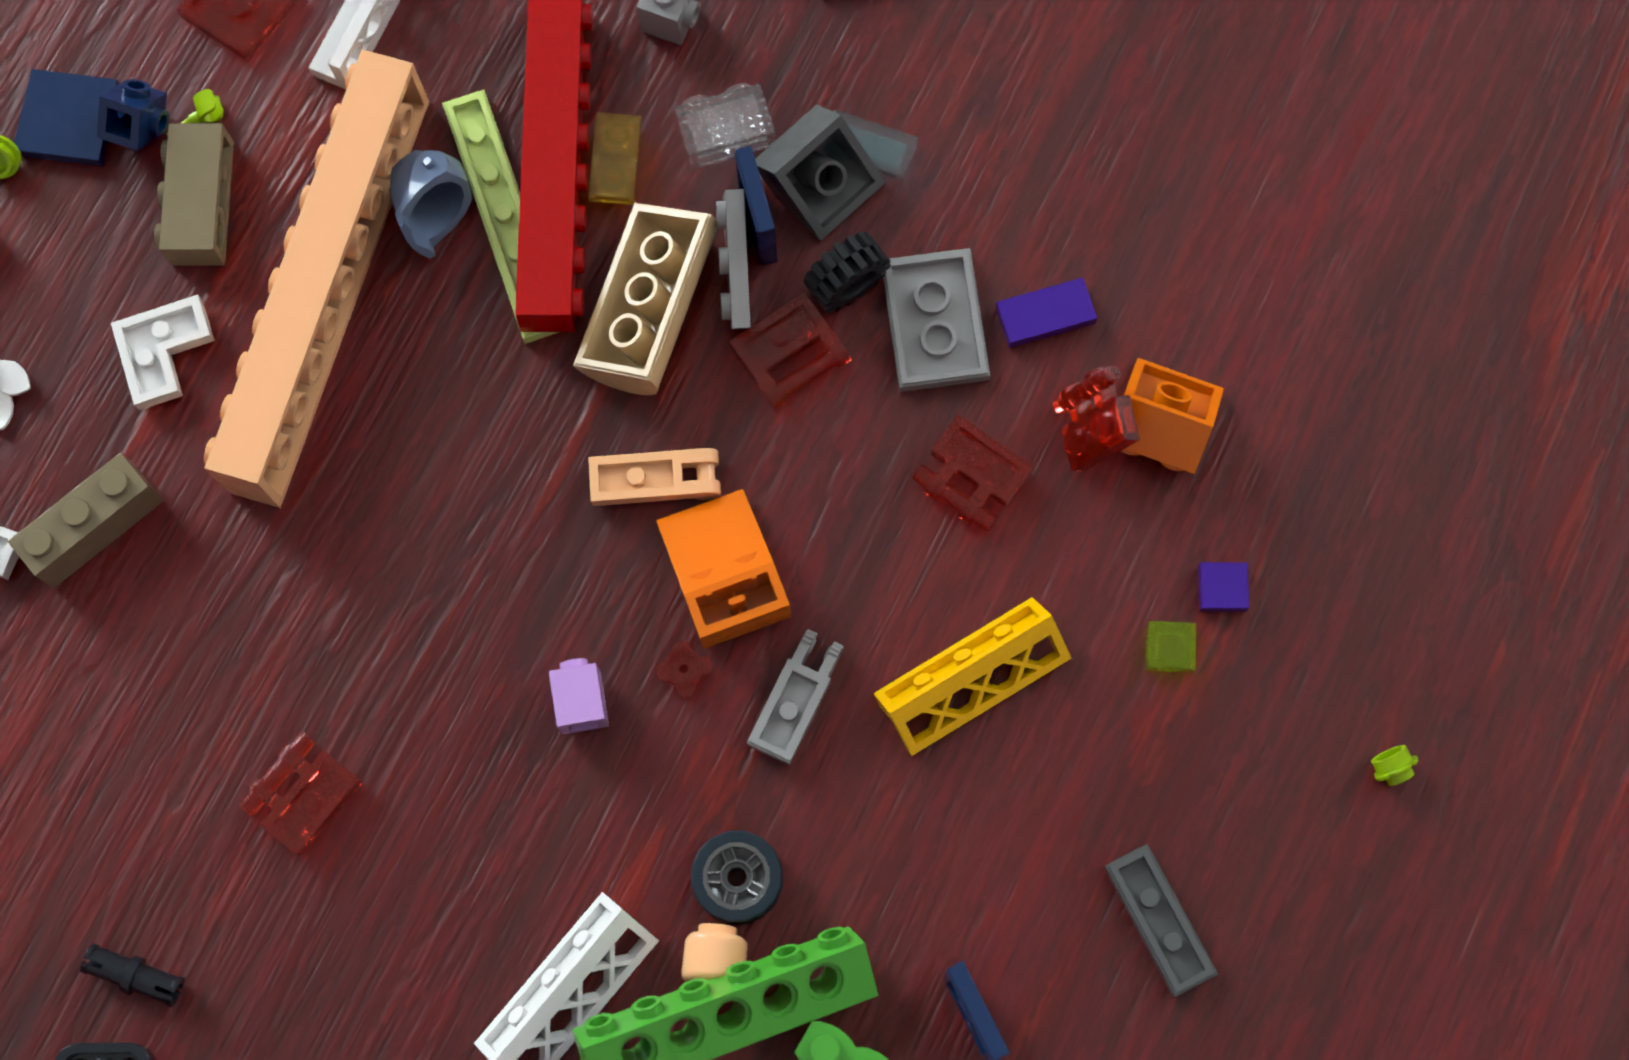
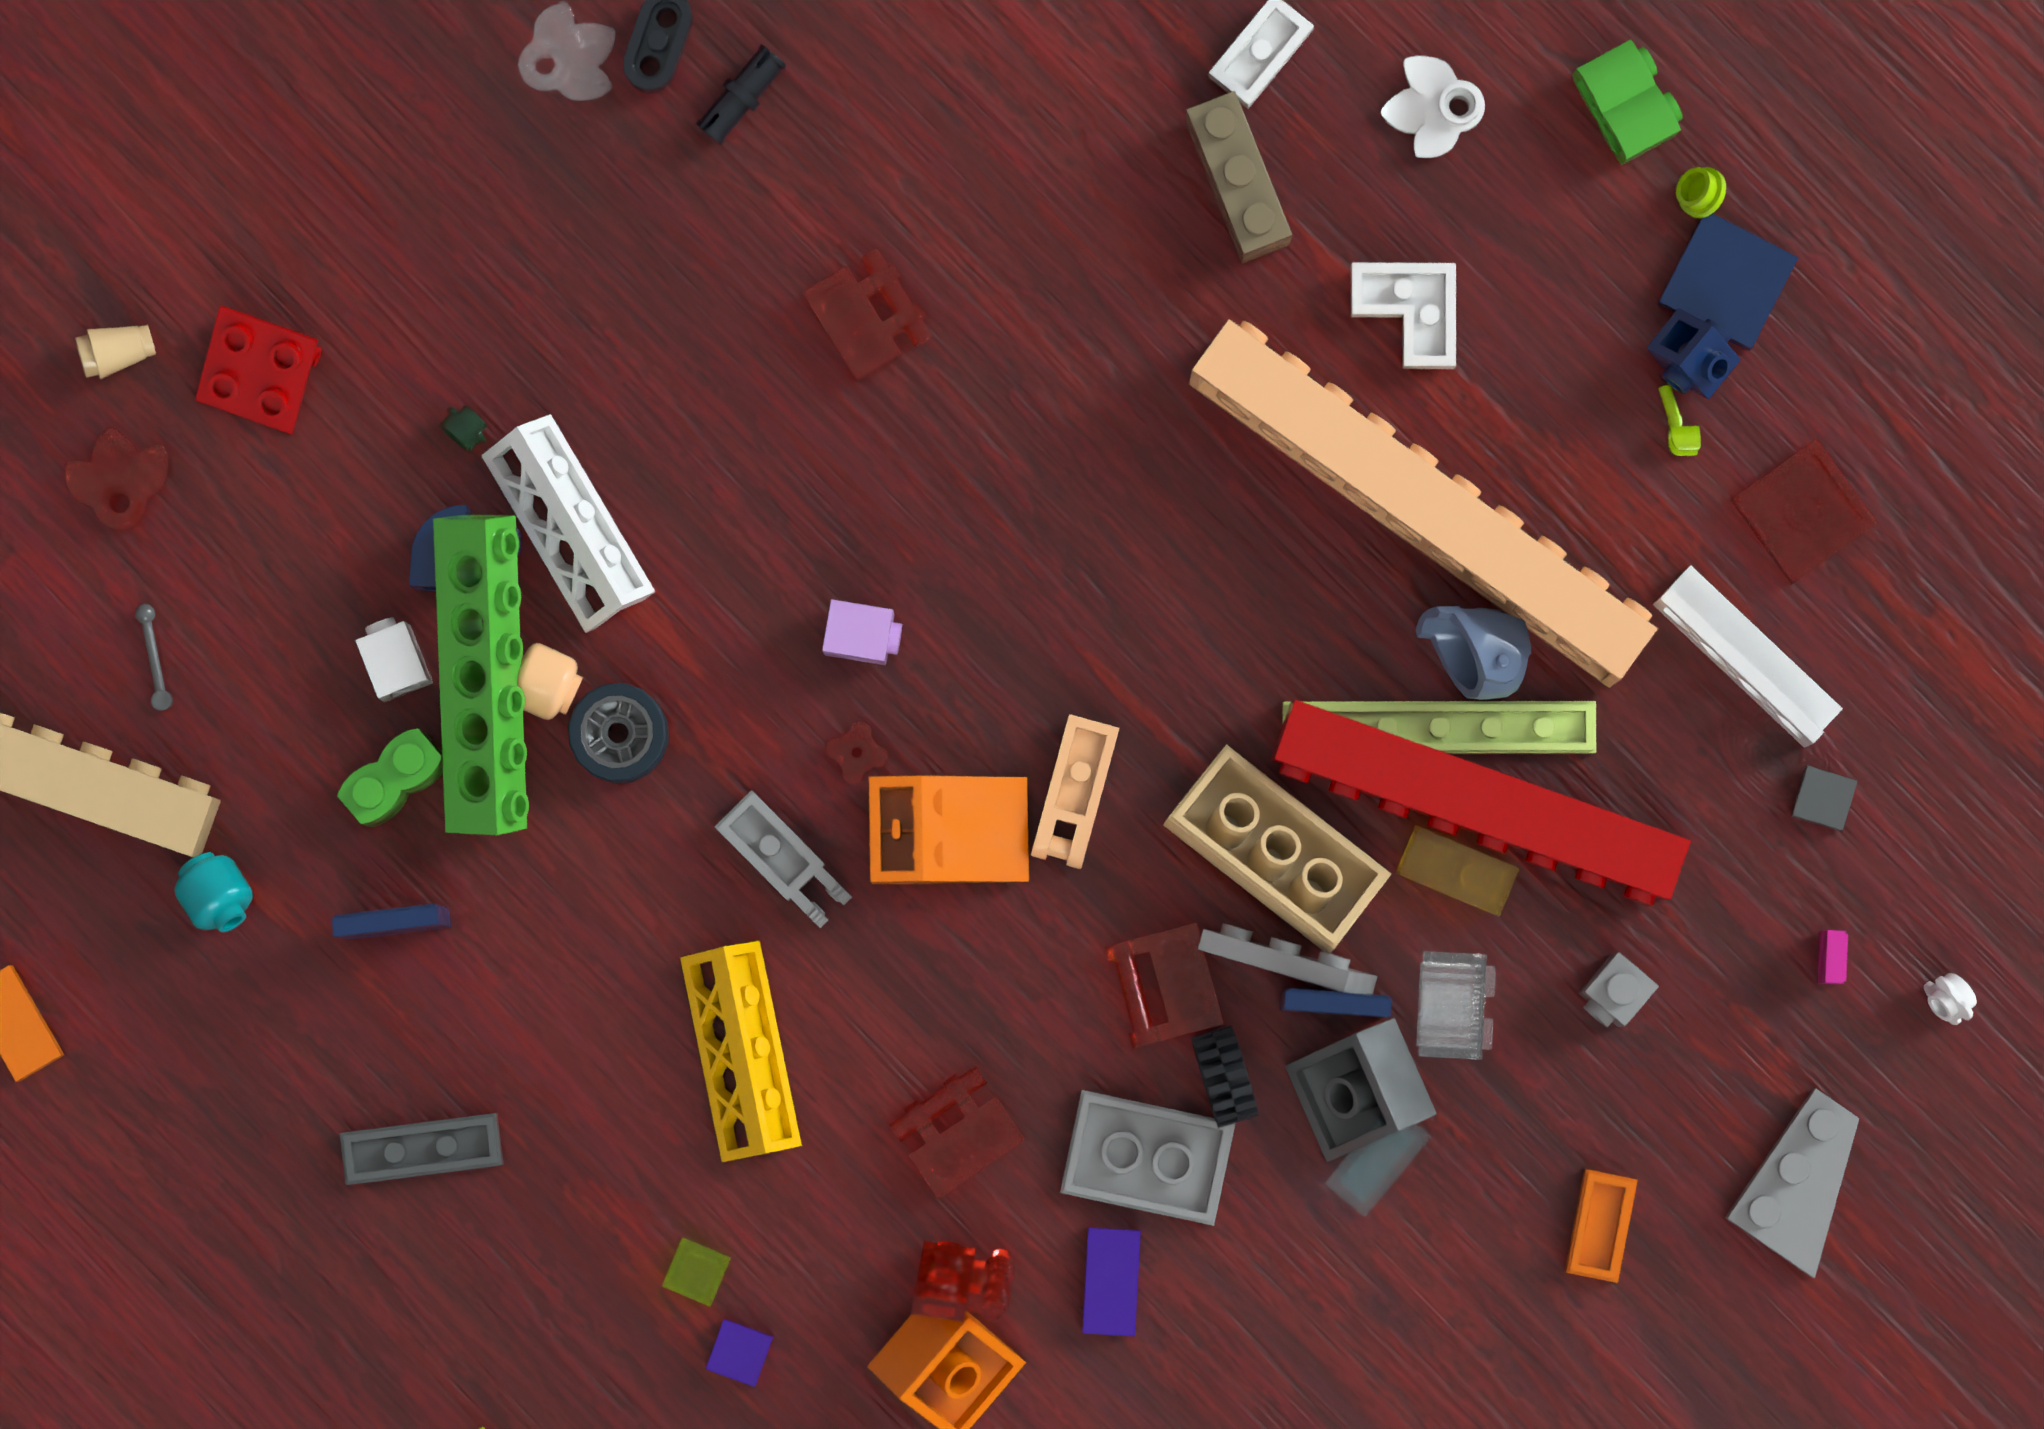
camera: 110 degrees right, 10 degrees up
(195, 194) = (1578, 395): dark tan brick -> none

